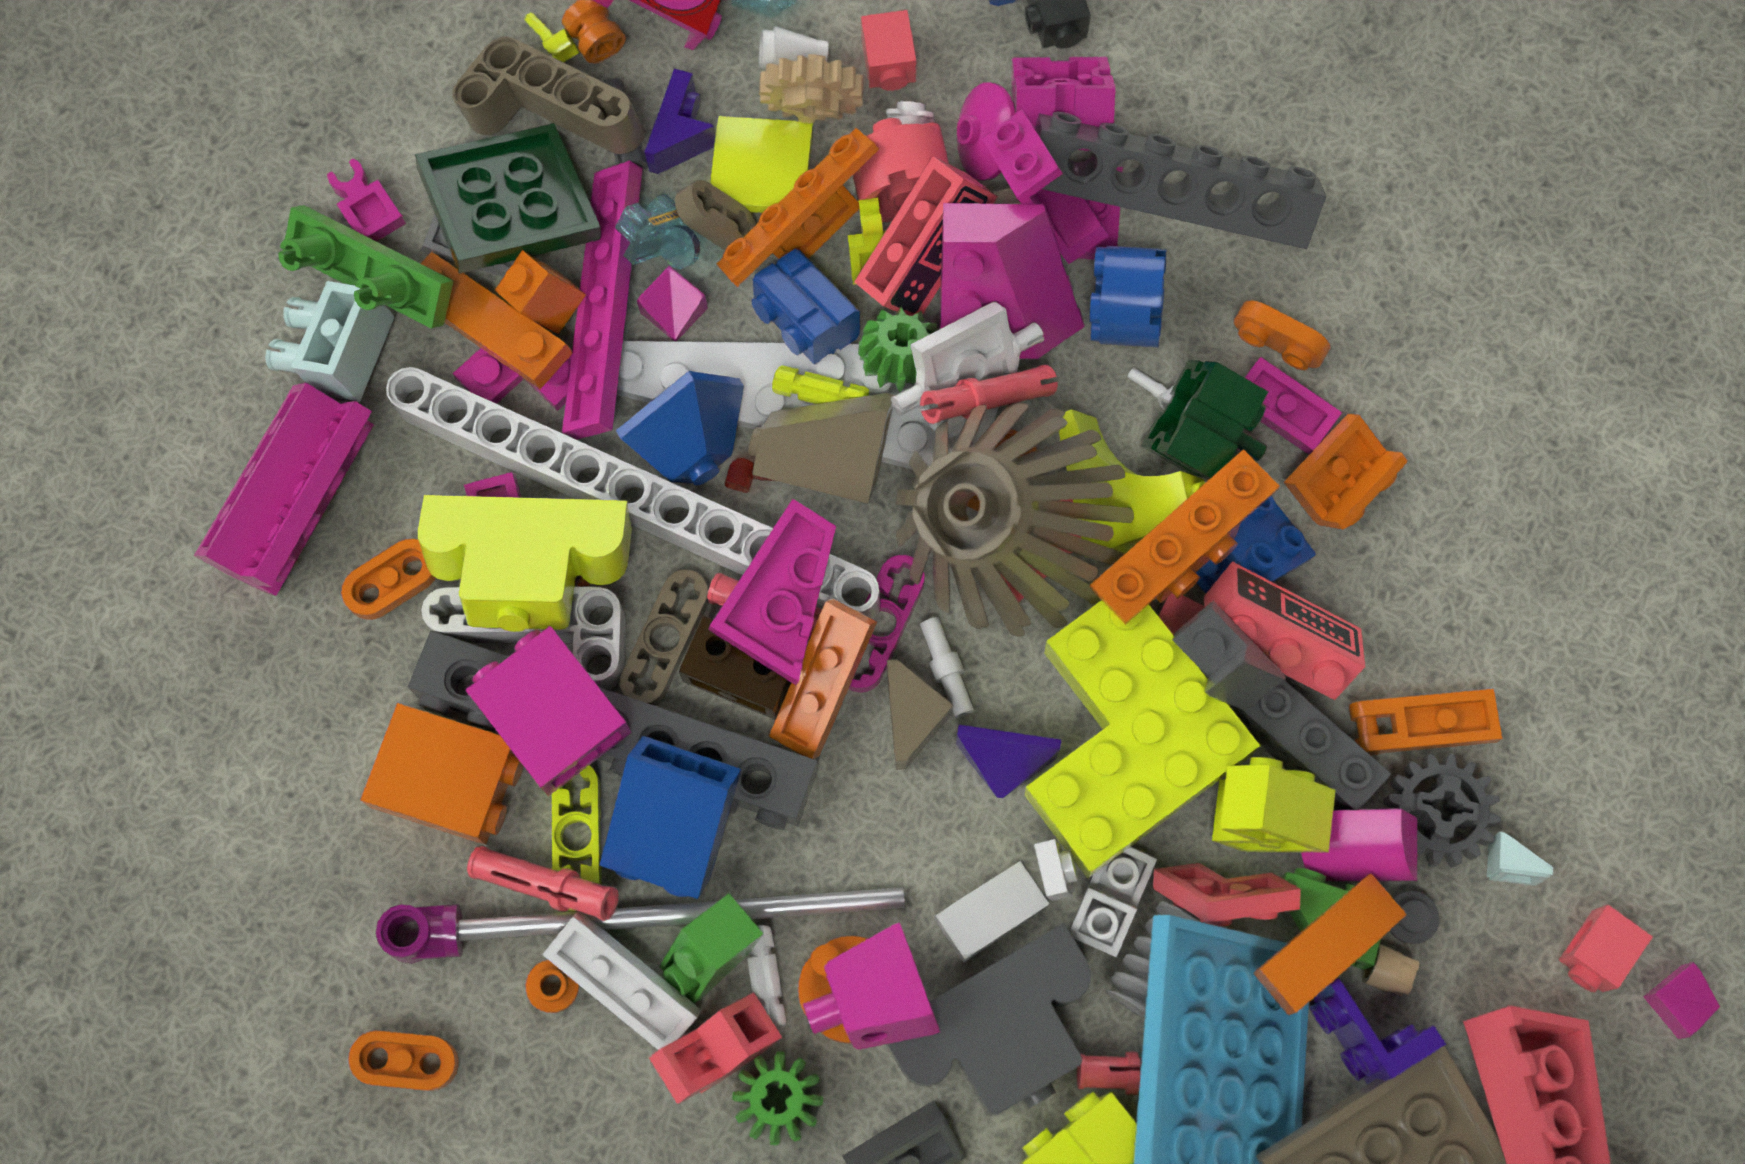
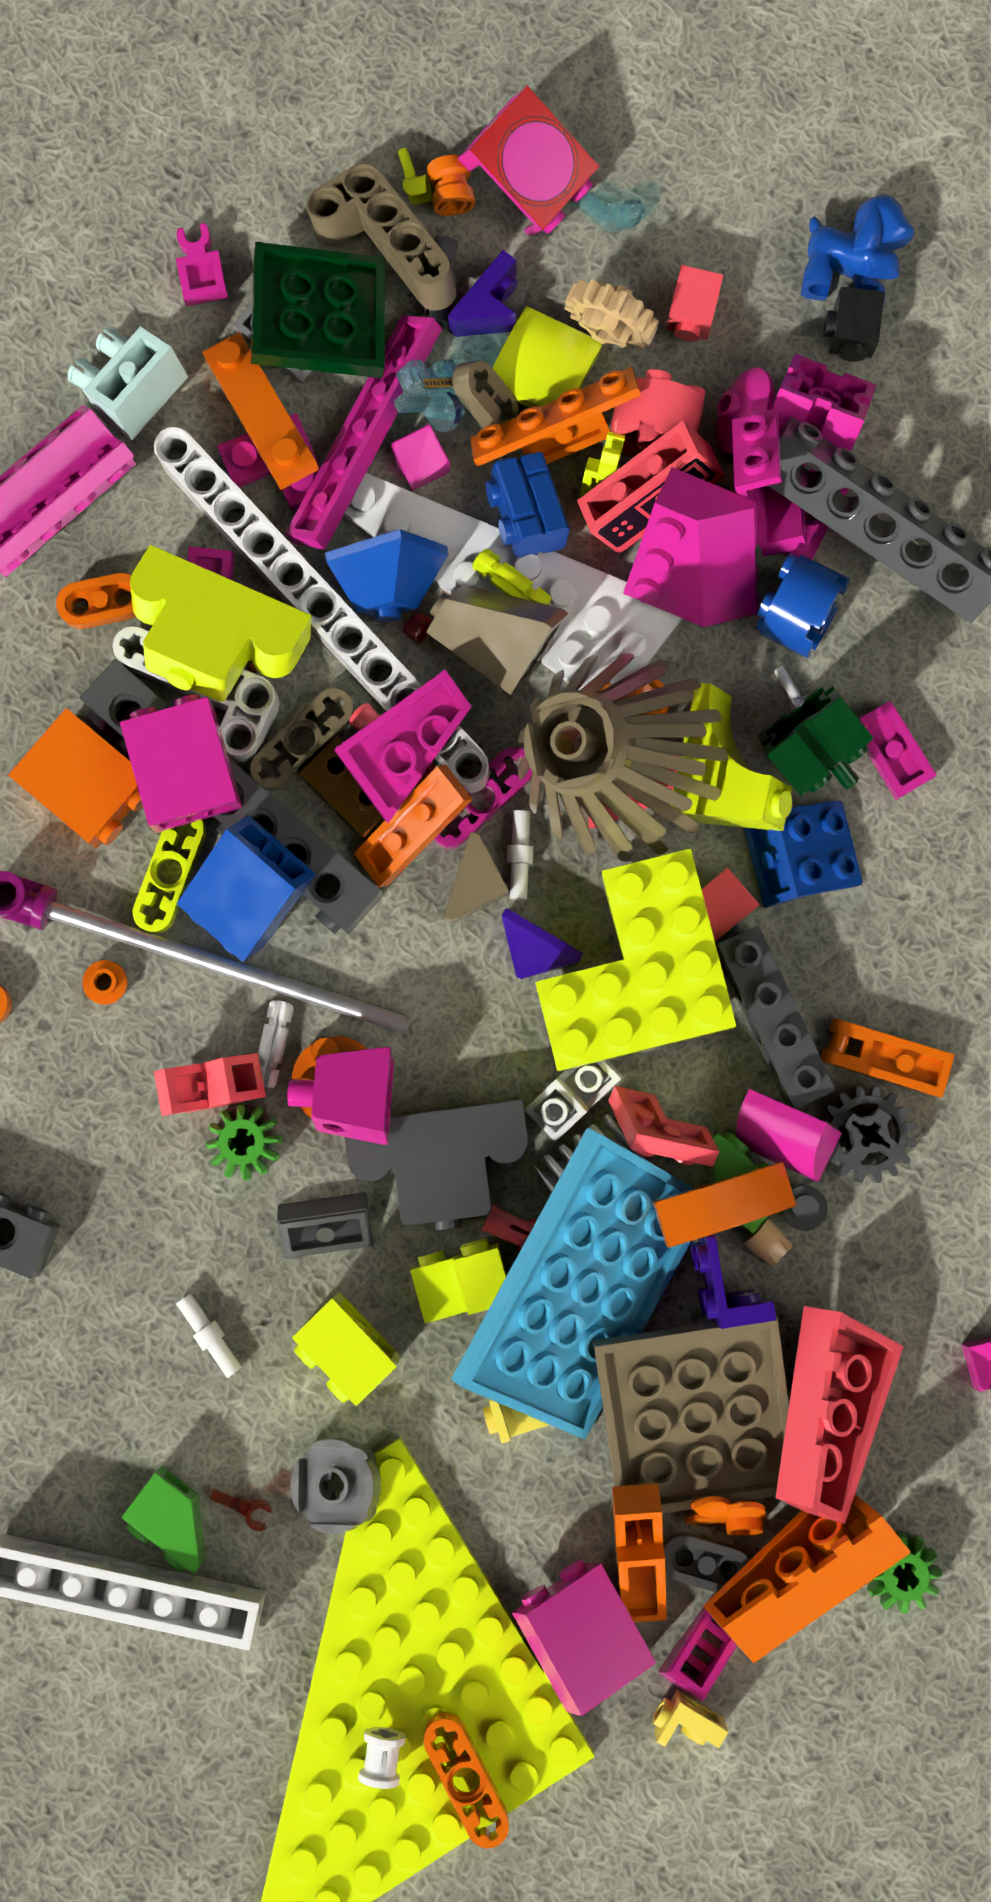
camera: 25 degrees right, 10 degrees up
(359, 261) = (184, 333): bright green plate -> none
(540, 292) = (313, 405): orange brick -> none
(560, 888) = (138, 910): coral pin -> none
(621, 981) = (158, 1002): white plate -> none
(709, 948) = (235, 1005): bright green slope -> none
(787, 44) = (609, 267): white cone -> none
(887, 347) = (607, 573): bright green gear -> none
(911, 113) = (686, 371): white plate -> none
(968, 348) = (636, 613): white plate -> none
(990, 392) = (644, 644): coral pin -> none
(991, 911) = (472, 1065): white slope -> none
(1056, 869) = (533, 1056): white plate -> none
(1186, 540) = (750, 834): orange bracket -> none
(1232, 661) = (743, 946): dark grey slope -> none
(1272, 809) = (727, 1080): neon yellow brick -> none
(1291, 631) = (801, 939): coral brick -> none
(1297, 342) = (927, 701): orange plate -> none
(1344, 474) = (915, 828): orange bracket -> none
(1515, 863) = (905, 1199): light aqua slope -> none
(1604, 950) = (945, 1297): coral brick -> none

